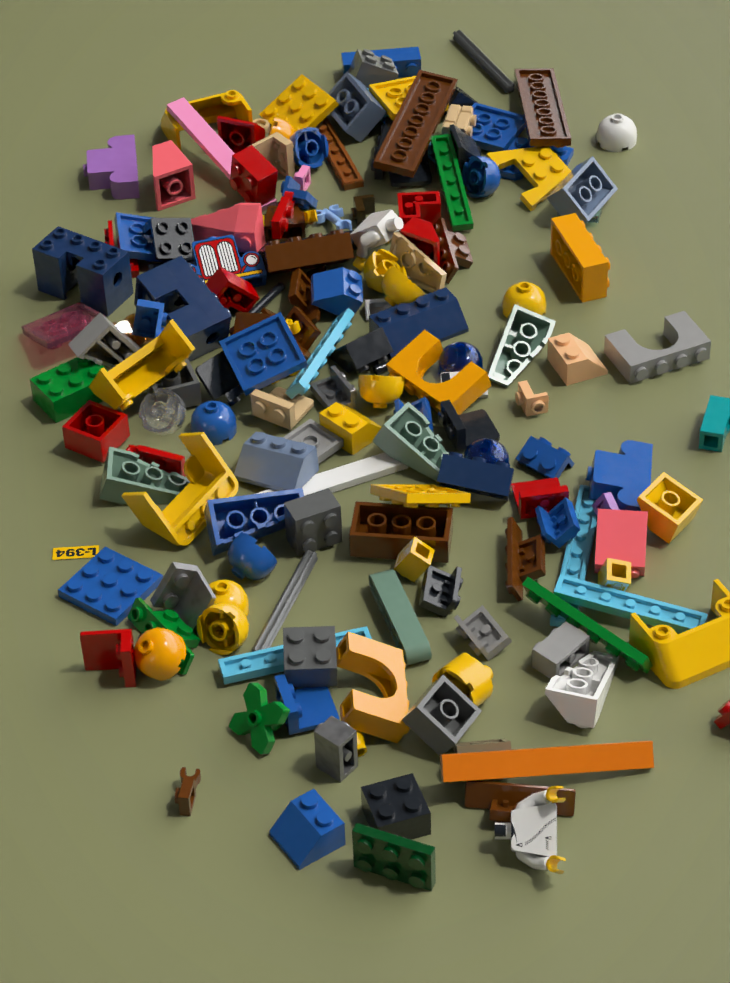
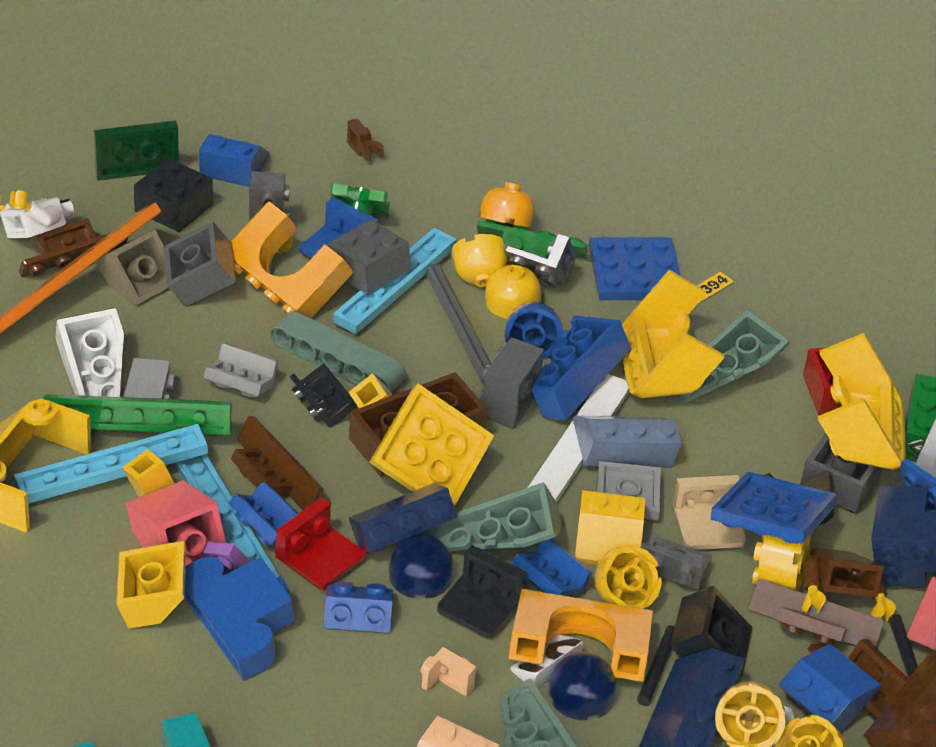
camera: 135 degrees right, 0 degrees up
(110, 651) = (548, 190): red bracket -> none
(162, 412) = (798, 432): clear cylinder -> none
(168, 461) = (751, 390): red hinge -> none
(215, 420) = (753, 454): blue cylinder -> none
(318, 357) = (749, 605): medium azure plate -> none
(469, 677) = (207, 303): yellow brick -> none

